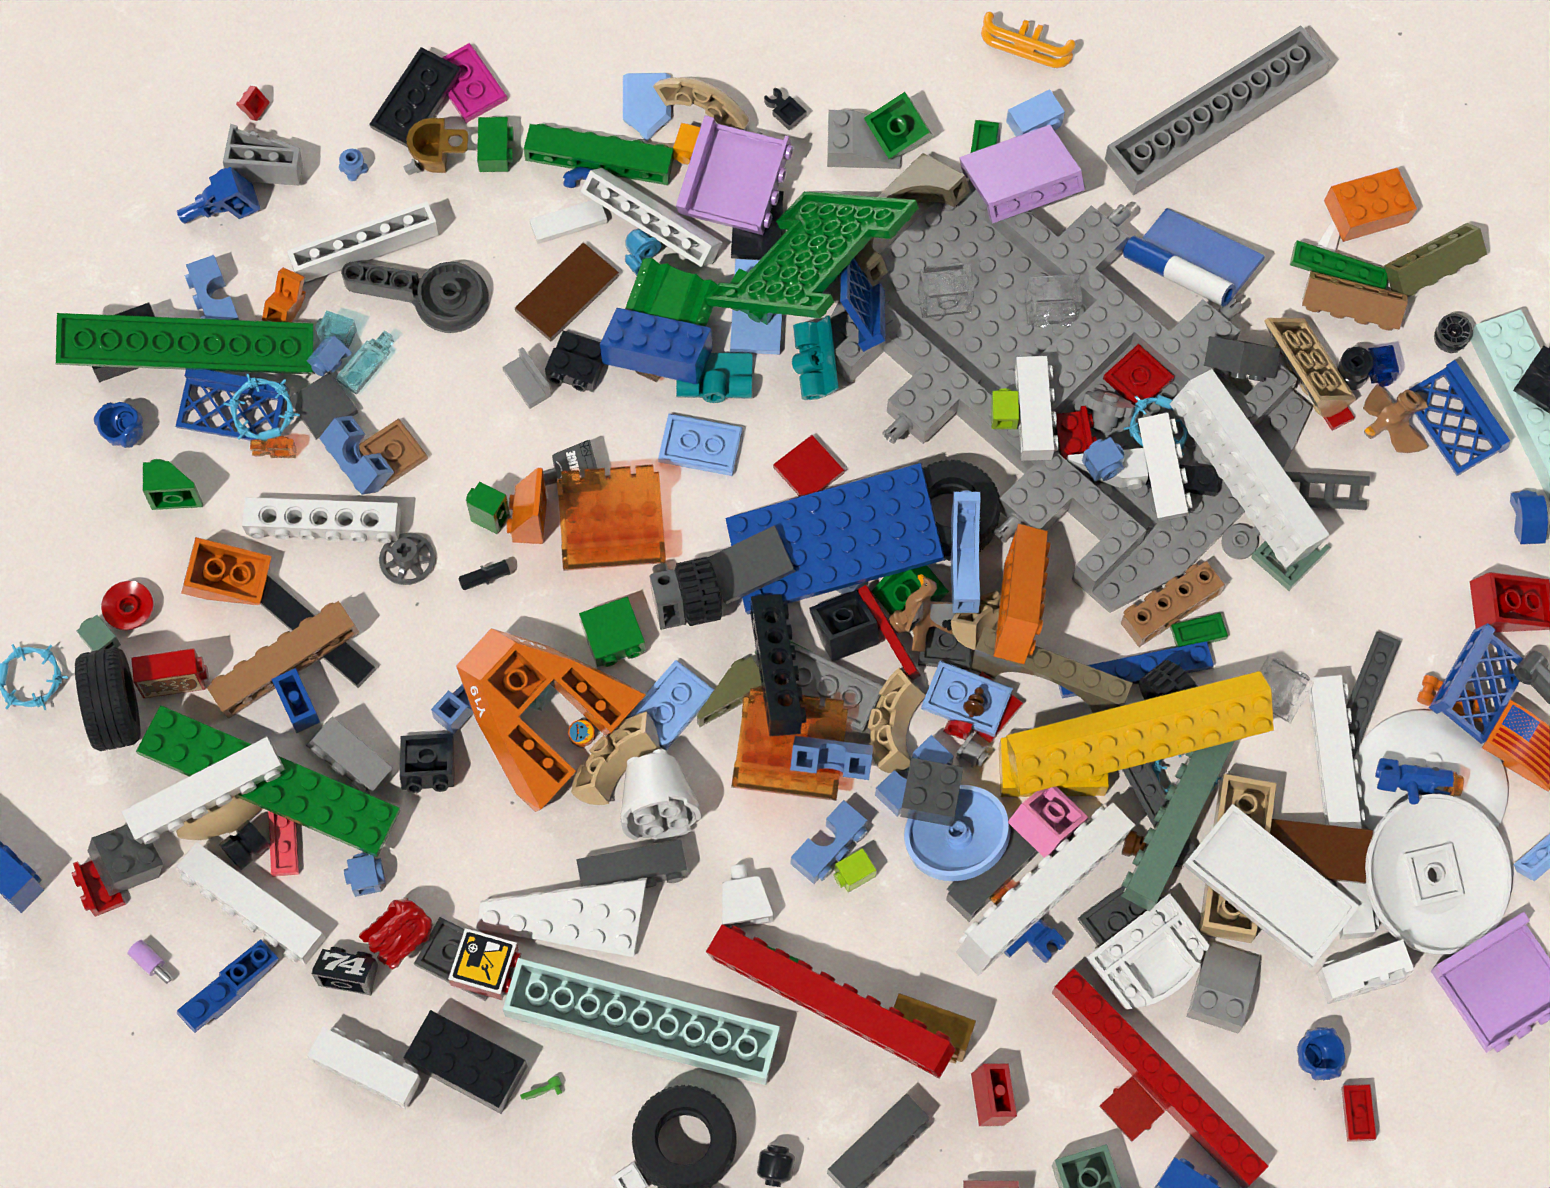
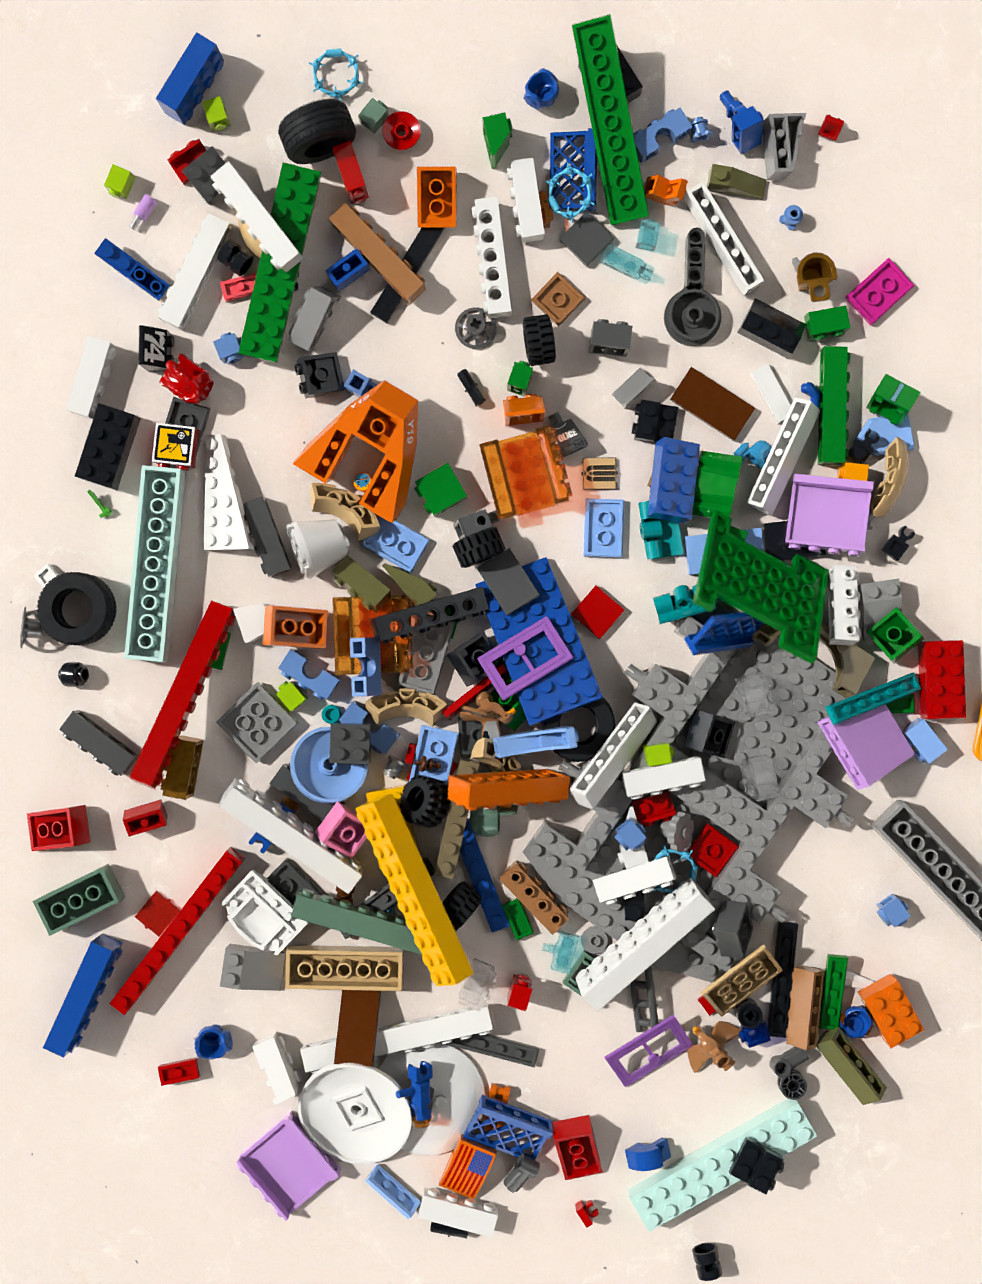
camera: 80 degrees right, 20 degrees up
(43, 839) = (216, 113): none -> lime brick
(102, 985) = (119, 182): none -> lime brick
(218, 248) = (700, 129): none -> medium blue brick
(257, 465) = (526, 200): none -> white brick
(293, 221) = (735, 182): none -> olive slope
(328, 356) = (623, 233): medium blue brick -> none
(342, 442) = (556, 260): medium blue arch -> none
(415, 95) = (860, 253): black tile -> none
(442, 474) = (539, 340): none -> black tyre
(459, 391) = (610, 338): none -> dark grey brick
(488, 208) = (772, 328): none -> black slope
(607, 82) = (893, 400): none -> green container
(628, 439) = (599, 473): none -> piece
(659, 130) = (861, 448): none -> black plate
(719, 750) = (361, 584): none -> olive brick
(762, 842) = (295, 627): none -> orange brick
(832, 560) = (516, 643): none -> medium lavender door
(851, 176) = (843, 605): none -> white brick
(883, 924) = (256, 722): none -> light grey plate
(888, 825) = (331, 714): none -> teal tile
(962, 85) = (942, 679): none -> red brick
(973, 158) = (873, 698): none -> teal tile
(987, 354) = (709, 733): none -> black slope
(999, 463) = (613, 755): none -> white brick
(1031, 688) = (425, 801): none -> black tyre
(1059, 637) = (486, 821): none -> sand green piece
(1194, 257) = (820, 880): door -> none
(1244, 184) = (893, 911): none -> medium blue brick
(1250, 580) = (562, 952): none -> clear light blue plate
(1271, 886) = (322, 995): white tile -> none
(1295, 636) = (519, 992): none -> red brick
(1324, 326) = (782, 983): none -> black tile
(1379, 244) = (856, 1021): none -> blue hair
(1403, 488) = (654, 1059): none -> medium lavender door
(1421, 331) = (790, 1058): none -> dark grey piece
(1477, 412) = (729, 1108): blue fence -> none

